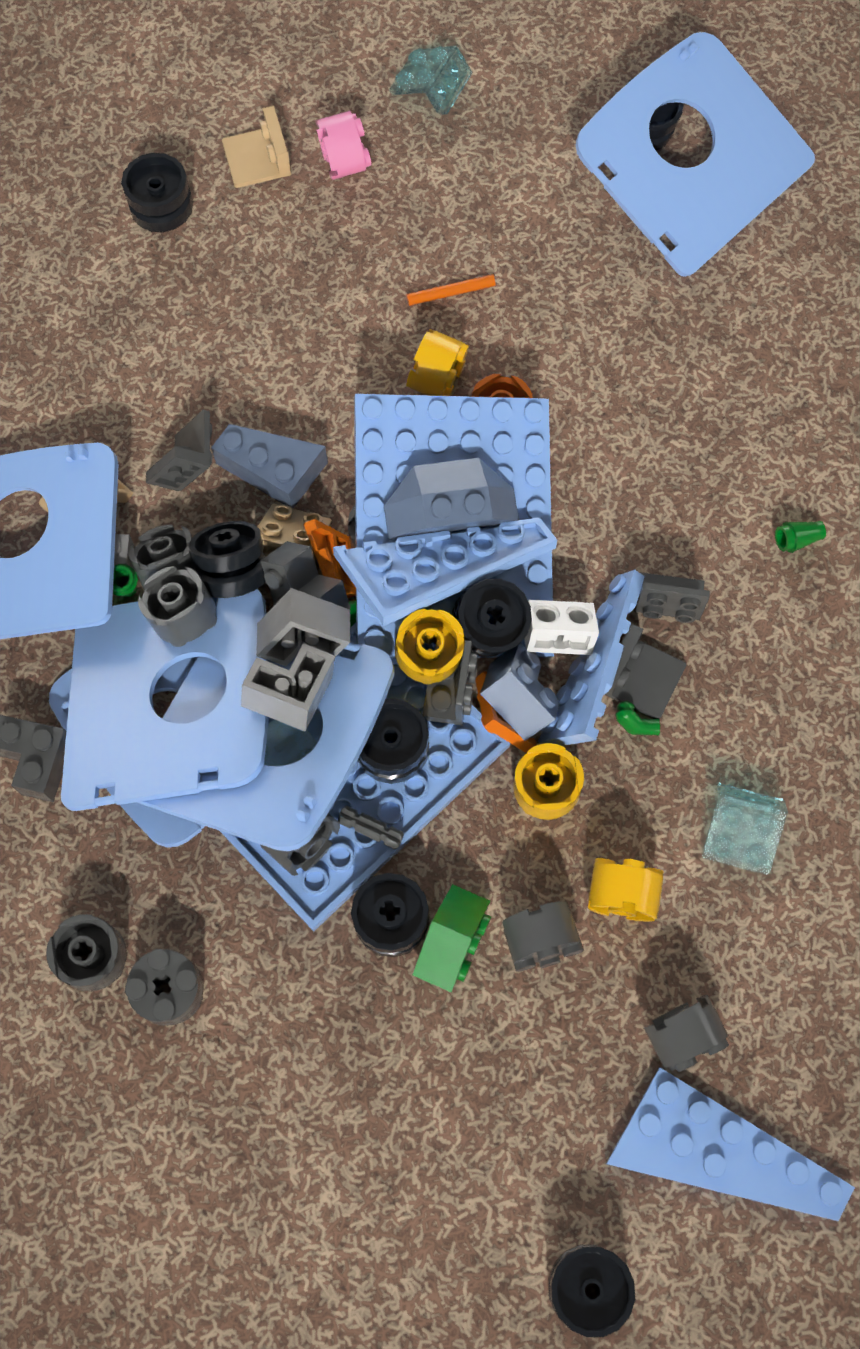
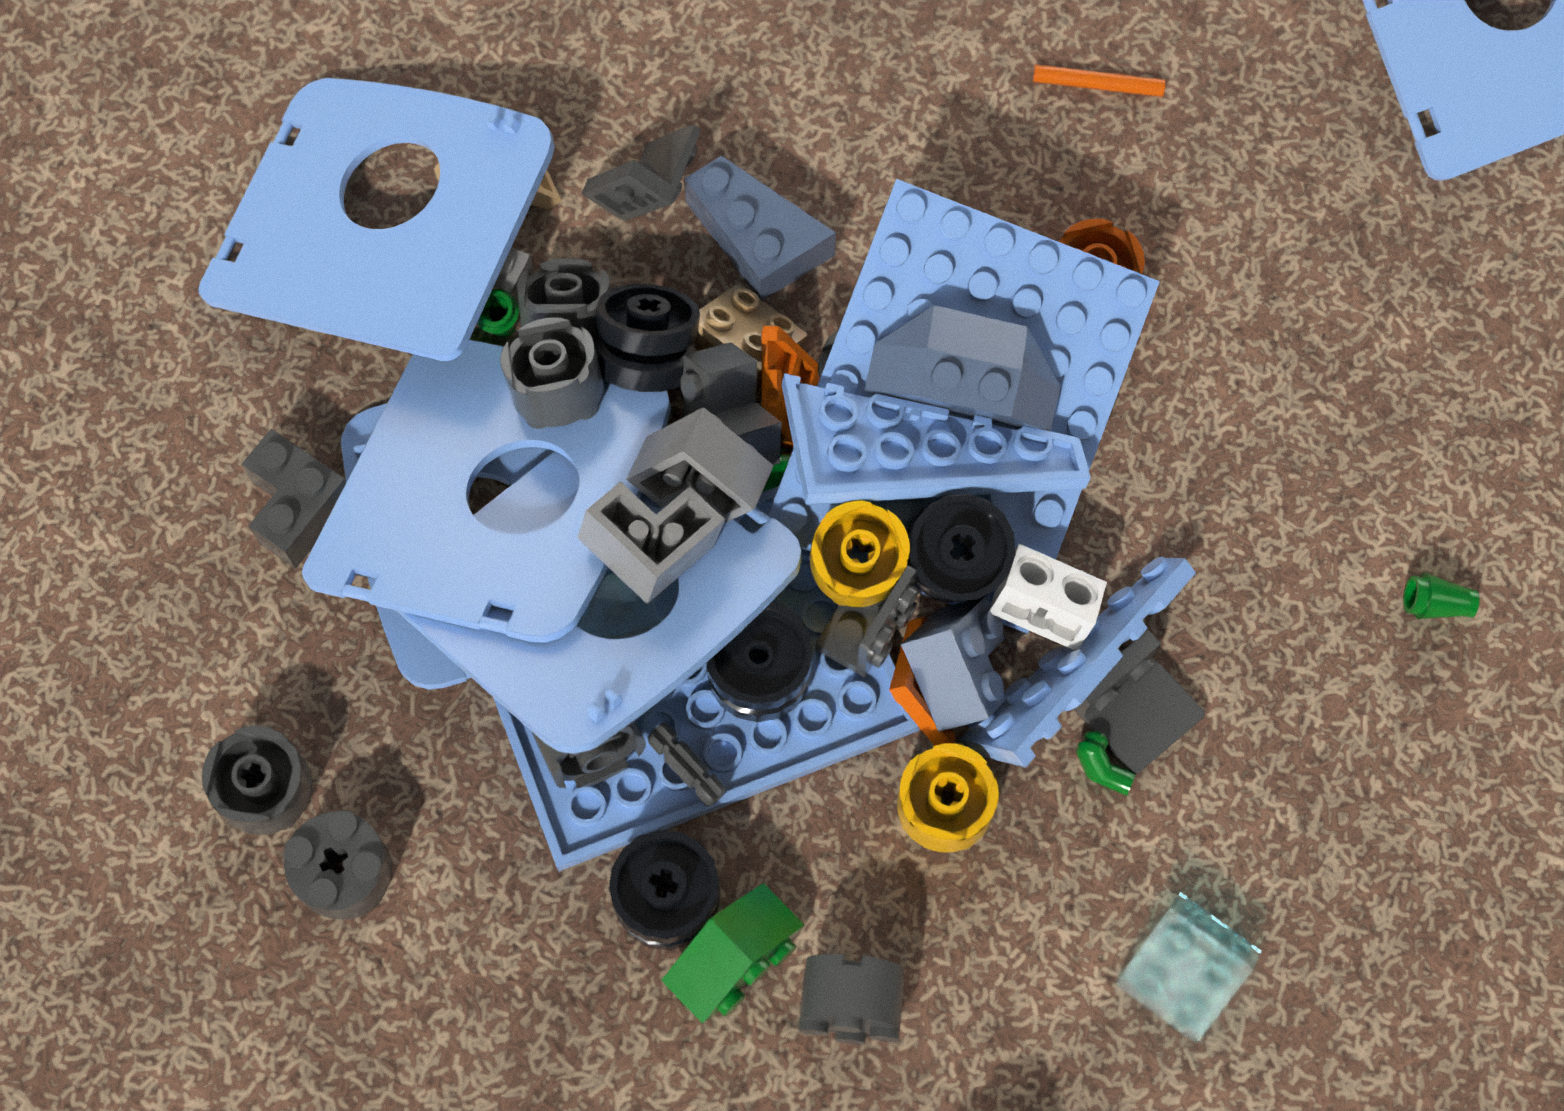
camera: 20 degrees right, 0 degrees up
(437, 364) = (1032, 177): yellow brick -> none
(625, 889) = (990, 983): yellow brick -> none
(672, 597) = (1222, 615): dark grey bracket -> none

